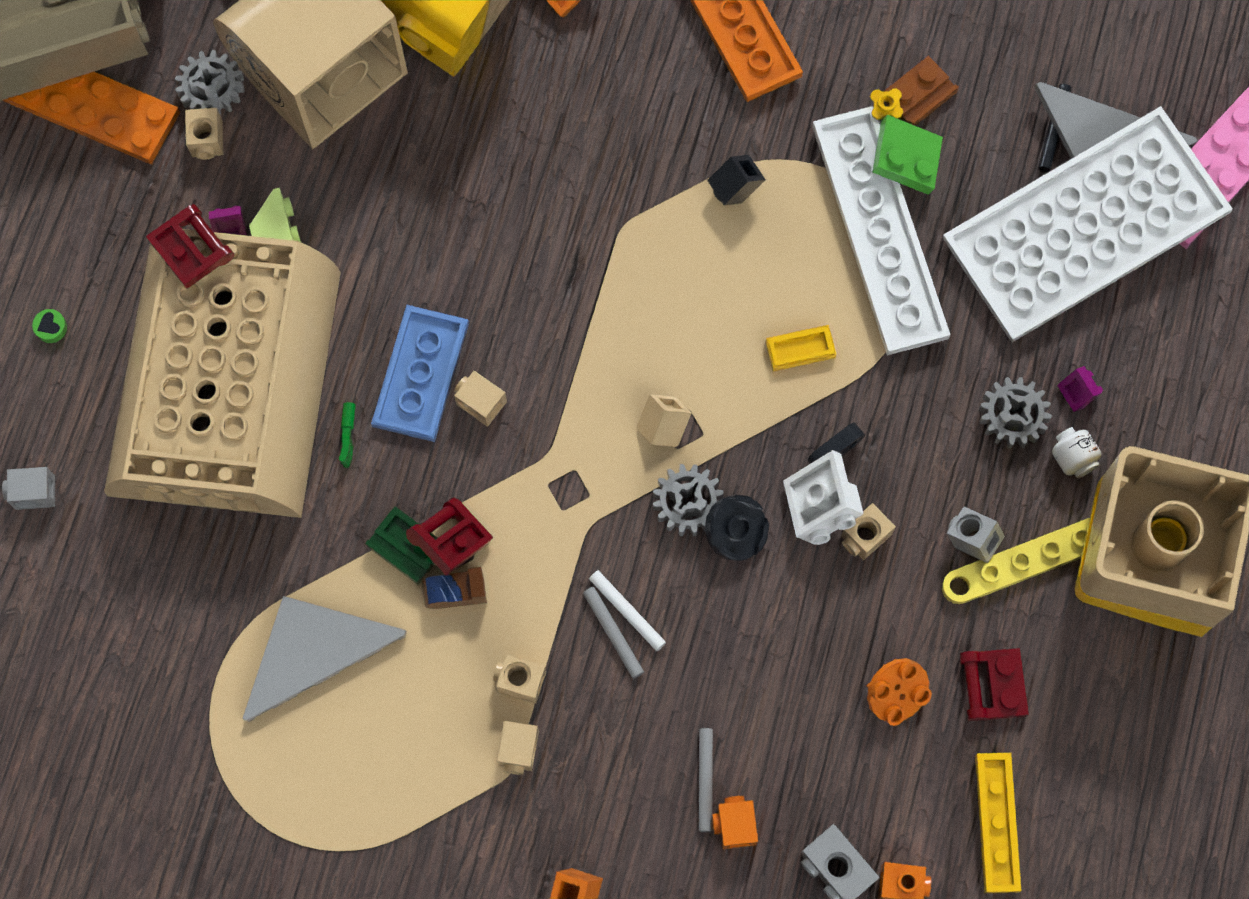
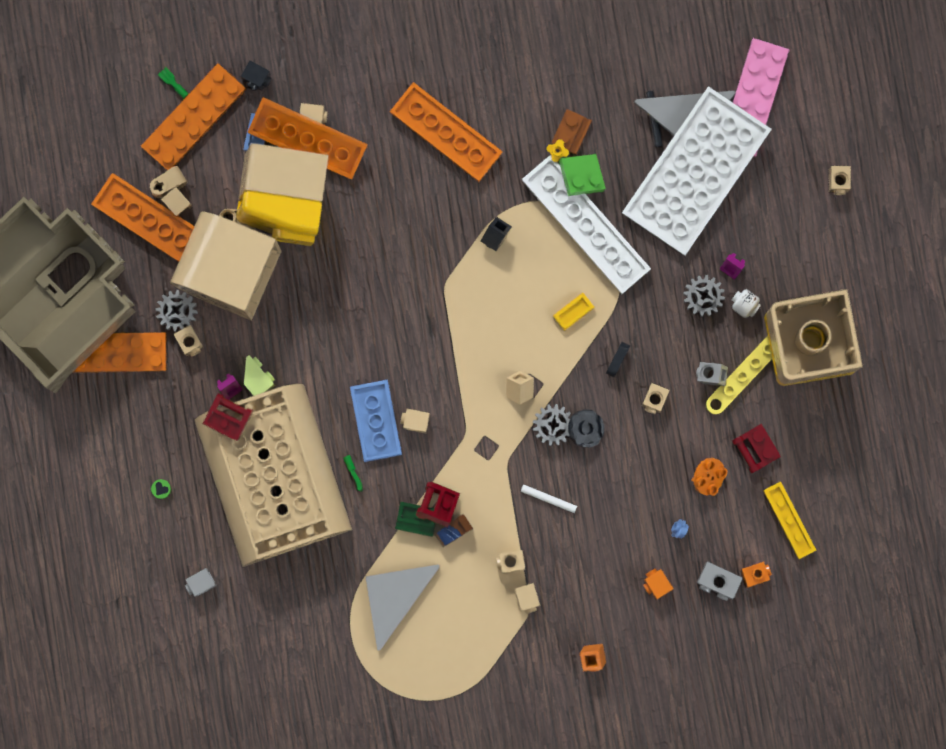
camera: 25 degrees left, 10 degrees up
(613, 632) = (547, 514): light grey bar -> none
(705, 779) = (631, 569): light grey bar -> none
(812, 753) = (679, 529): none -> medium blue plate
(822, 499) = (624, 393): white plate -> none

